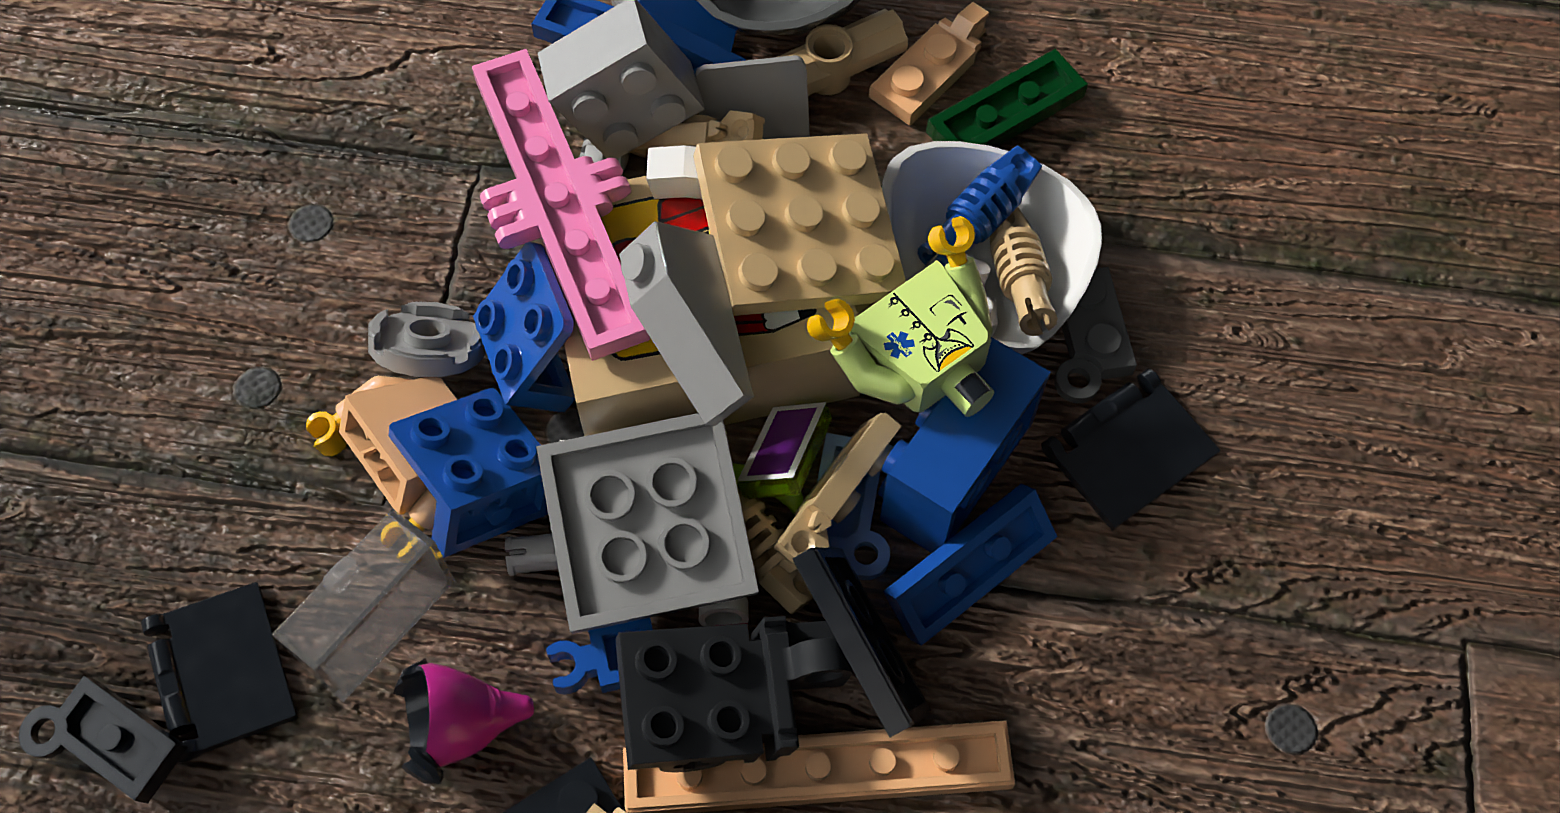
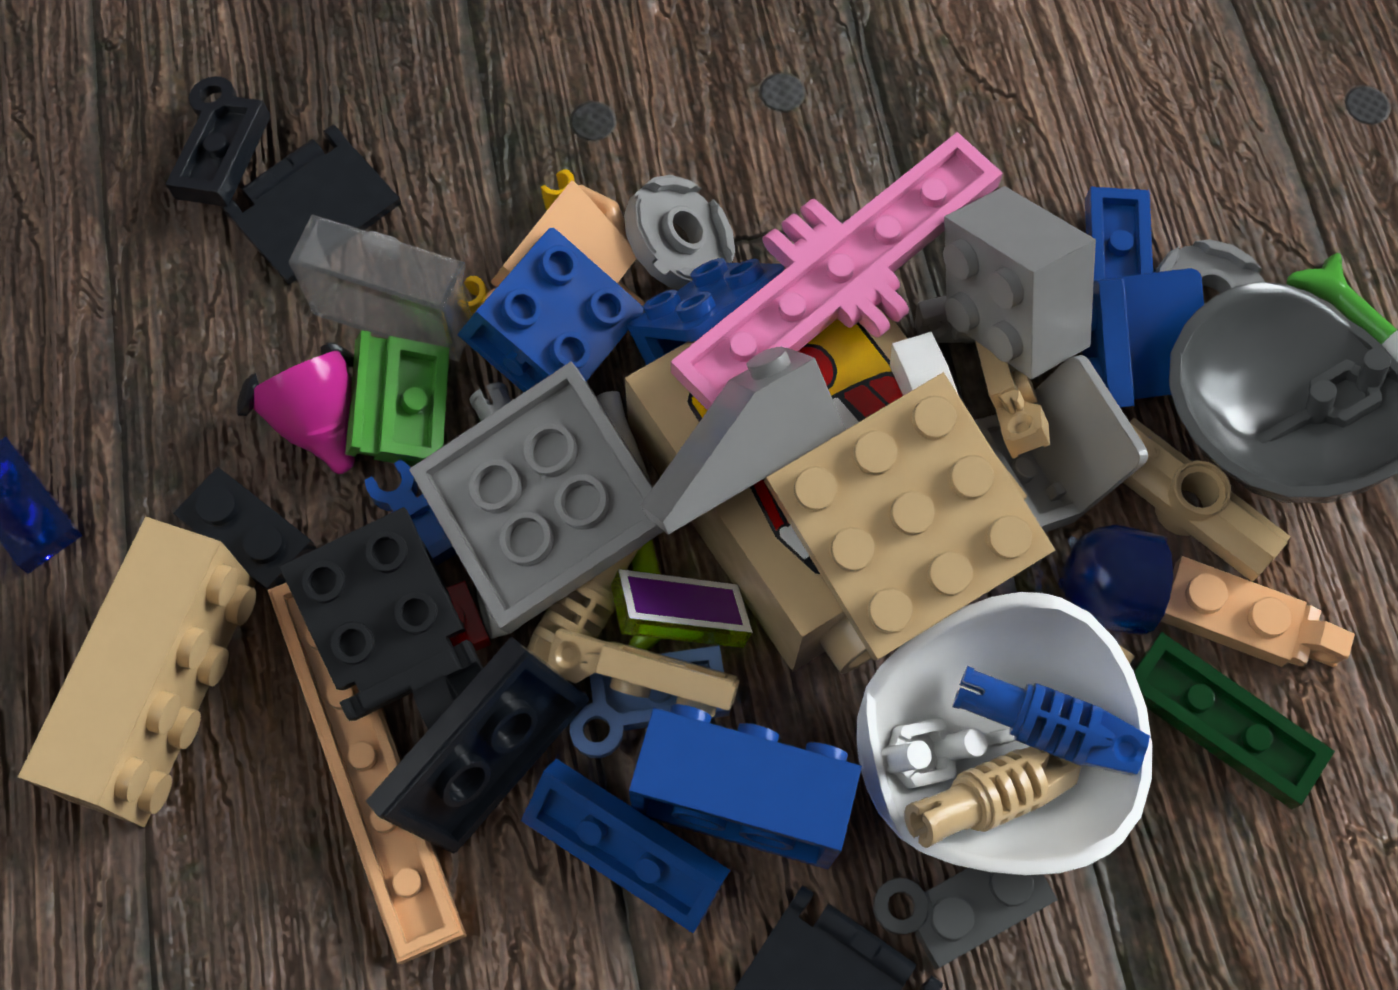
camera: 70 degrees right, 5 degrees up
(483, 634) = (397, 399): none -> bright green plate
(888, 113) = (1120, 577): none -> clear blue helmet
(921, 336) = (811, 686): yellowish green torso -> none

